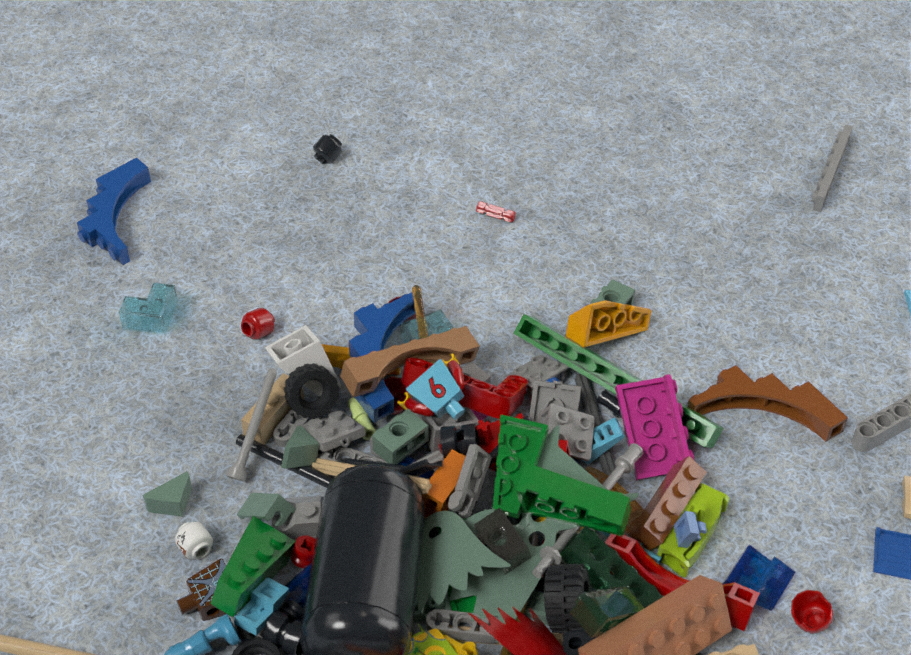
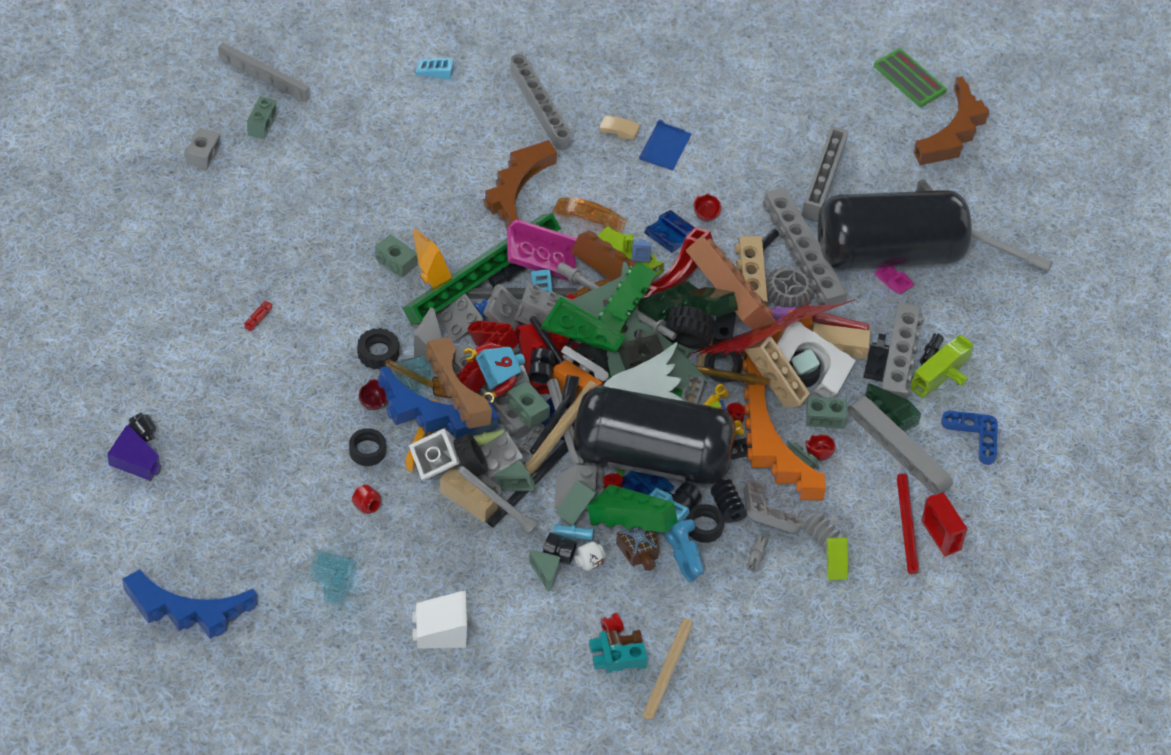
camera: 85 degrees left, 5 degrees up
(44, 578) = (616, 655): none -> teal hips
(86, 408) = (441, 622): none -> white slope
(87, 574) = (612, 623): none -> red wheel
(200, 504) = (560, 547): none -> black wheel
(230, 520) = (574, 532): none -> medium azure pin
(293, 150) = (134, 455): none -> dark purple slope
(332, 329) = (367, 434): none -> black tyre
(473, 294) = (377, 336): none -> black tyre
(496, 339) = (427, 331): none -> light grey slope
(704, 139) = (202, 148): none -> light grey brick
(751, 486) = (590, 211): none -> clear orange slope
(766, 173) = (262, 117): none -> sand green brick

